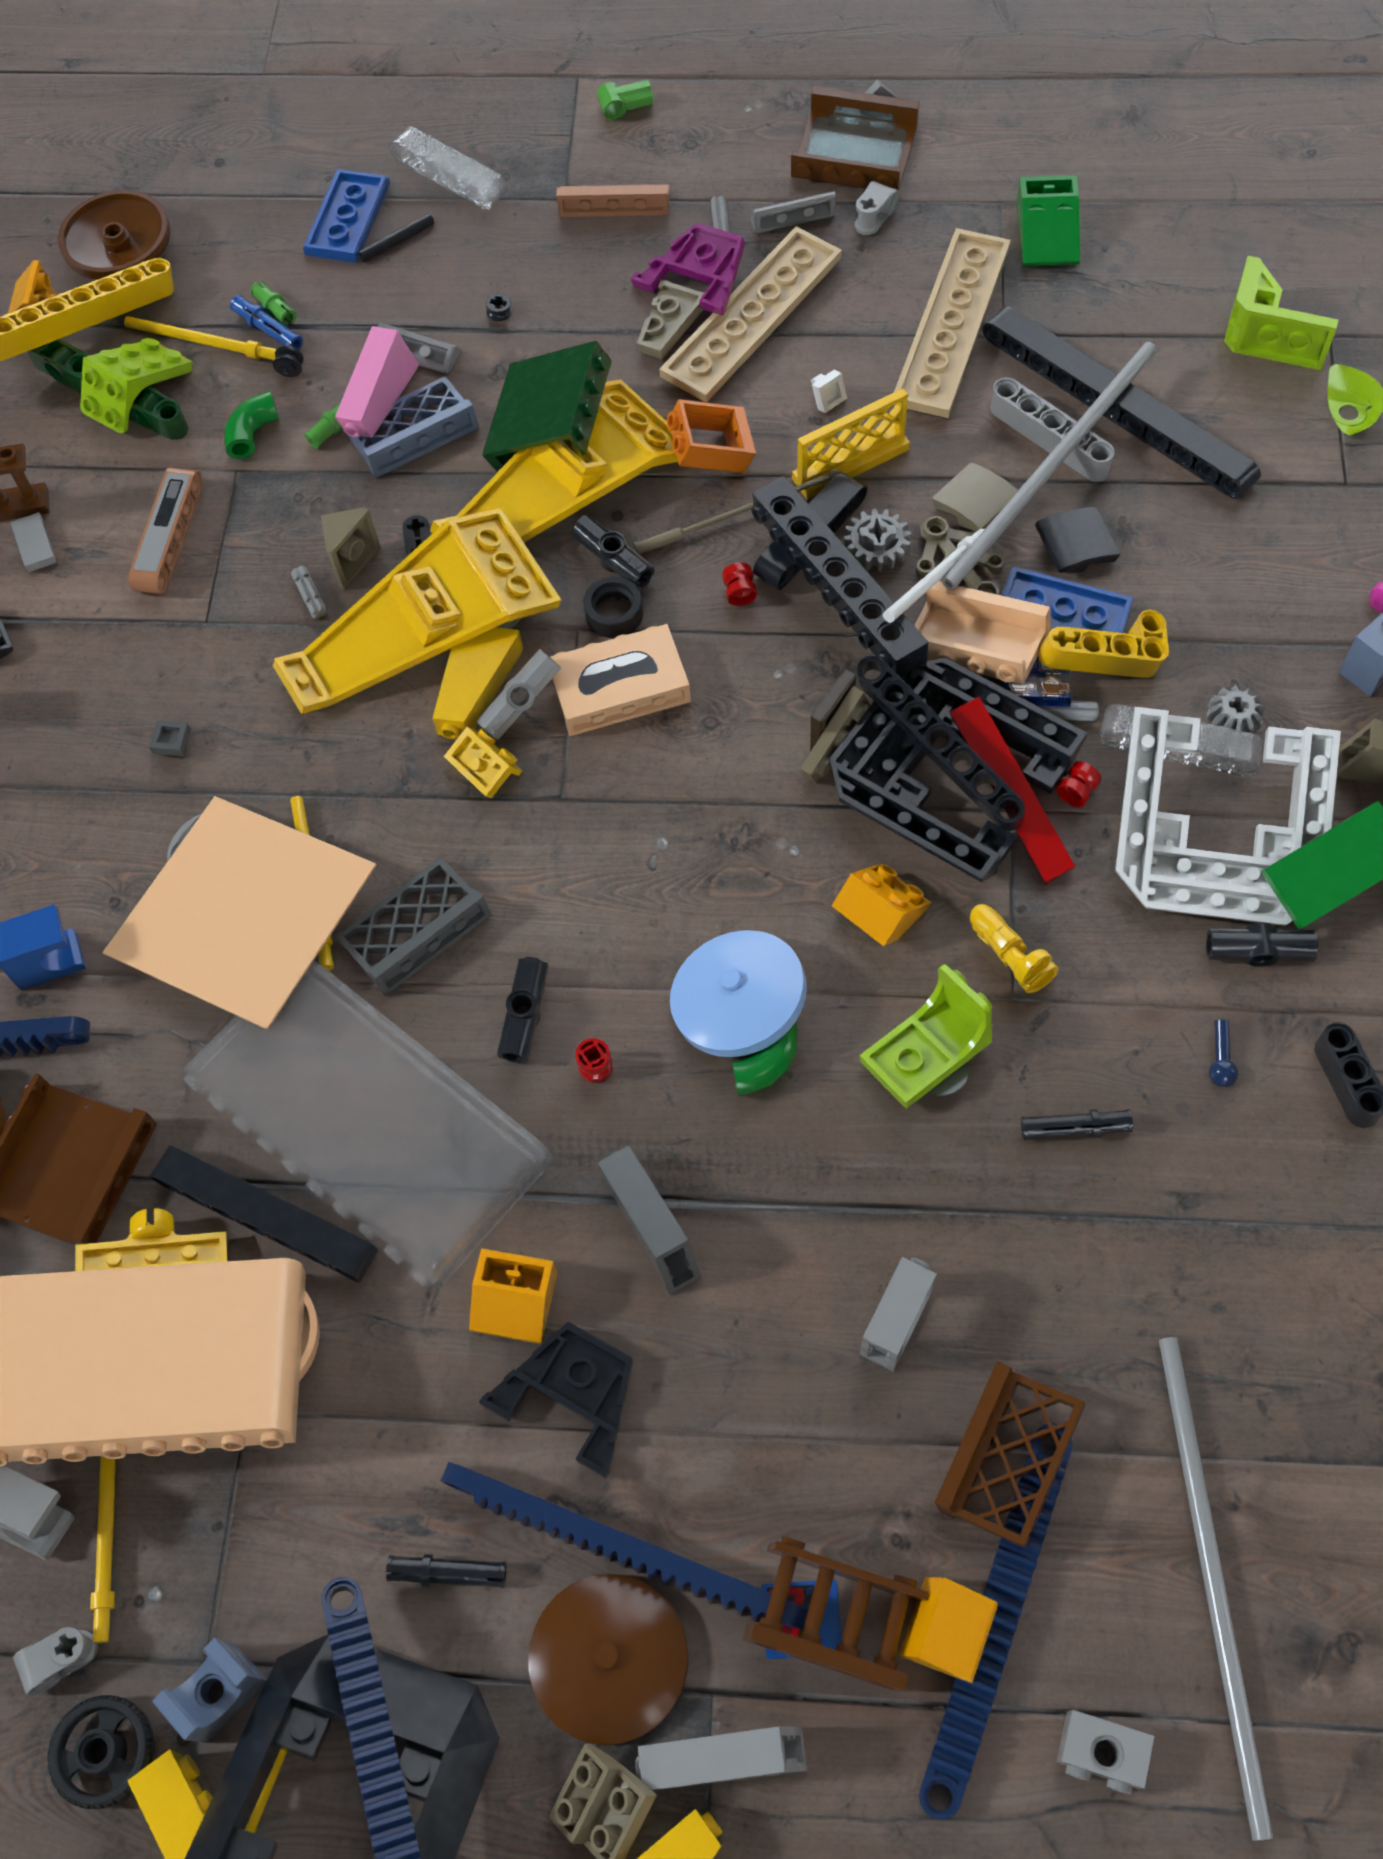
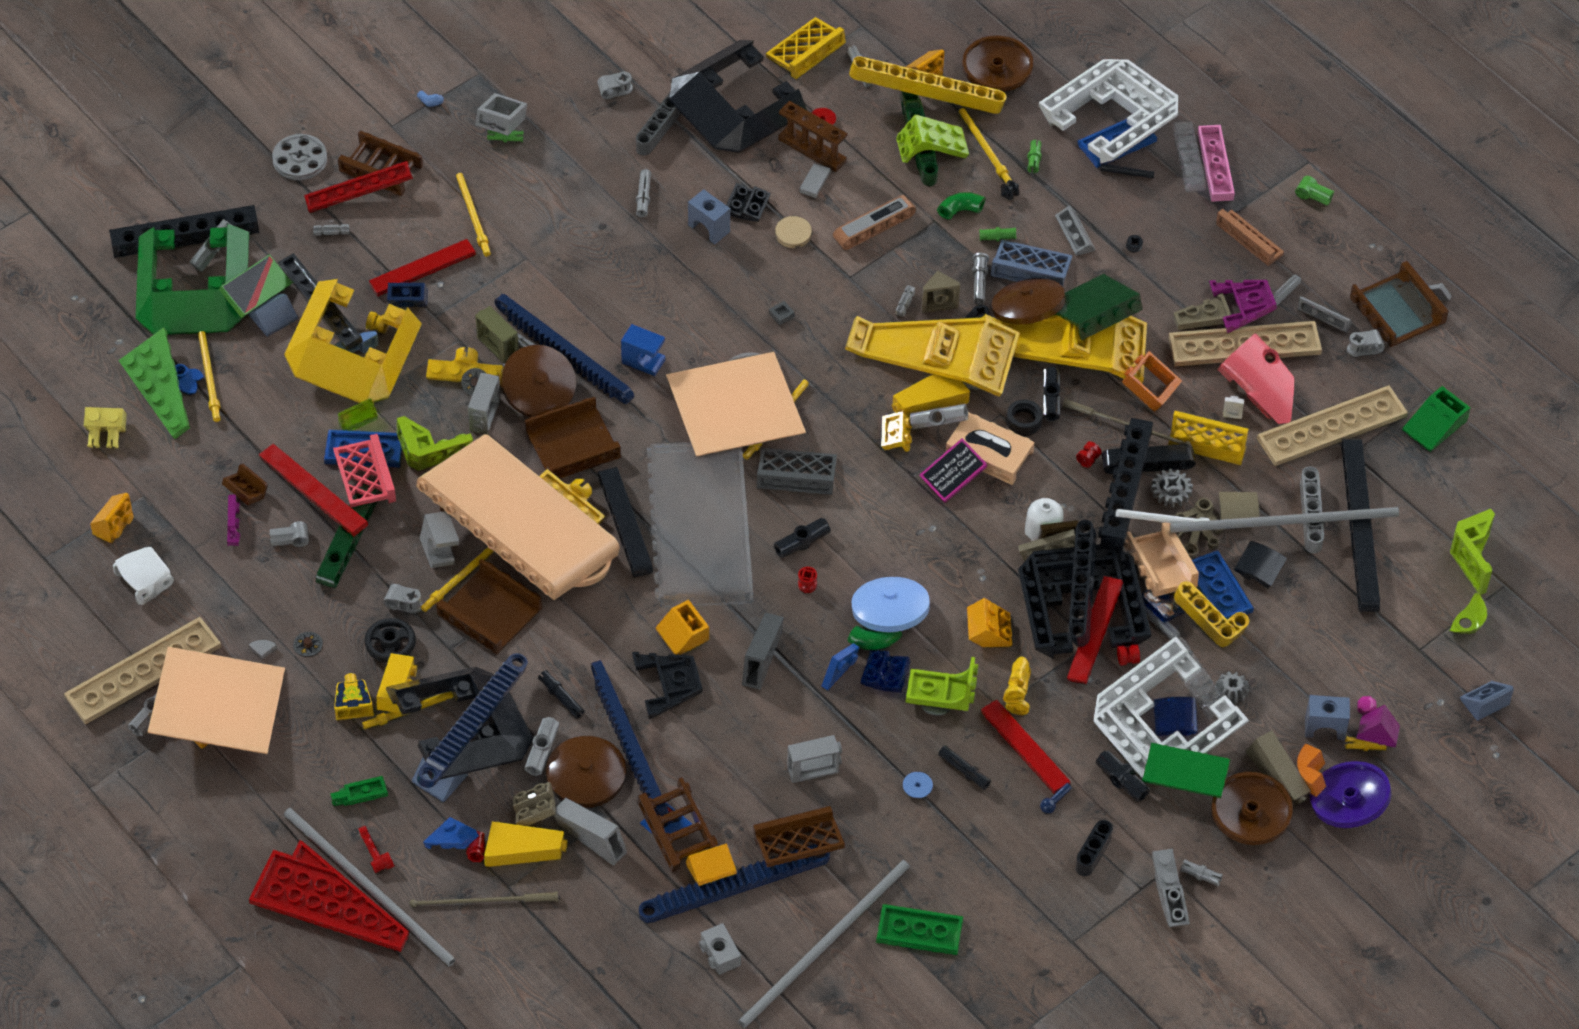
camera: 40 degrees right, 10 degrees down
(73, 626) = (793, 232): none -> tan tile
(189, 1704) = (436, 652): sand blue piece -> none
(201, 1537) = (491, 607): none -> reddish brown panel
(245, 308) = (1020, 158): blue pin -> none
(298, 145) = (1126, 84): none -> white slope
(361, 482) = (980, 272): none -> light grey pin
(376, 382) = (1033, 232): bright pink slope -> none
(463, 465) = (1028, 301): none -> reddish brown dish
(517, 167) = (1216, 163): none -> bright pink piece
(520, 1713) = (544, 737): none -> light grey piece
(611, 746) = (953, 470): none -> black tile
(773, 1139) = (839, 665): none -> blue wing
(787, 709) = (1042, 512): none -> white cylinder
(825, 328) = (1266, 384): none -> coral panel
(829, 1089) = (885, 671): none -> clear blue slope
(1050, 1208) = (917, 784): none -> medium blue piece
(1107, 1020) = (1025, 746): none -> red tile
(1222, 808) = (1175, 715): none -> clear blue slope
(1295, 1418) = (919, 929): none -> green tile

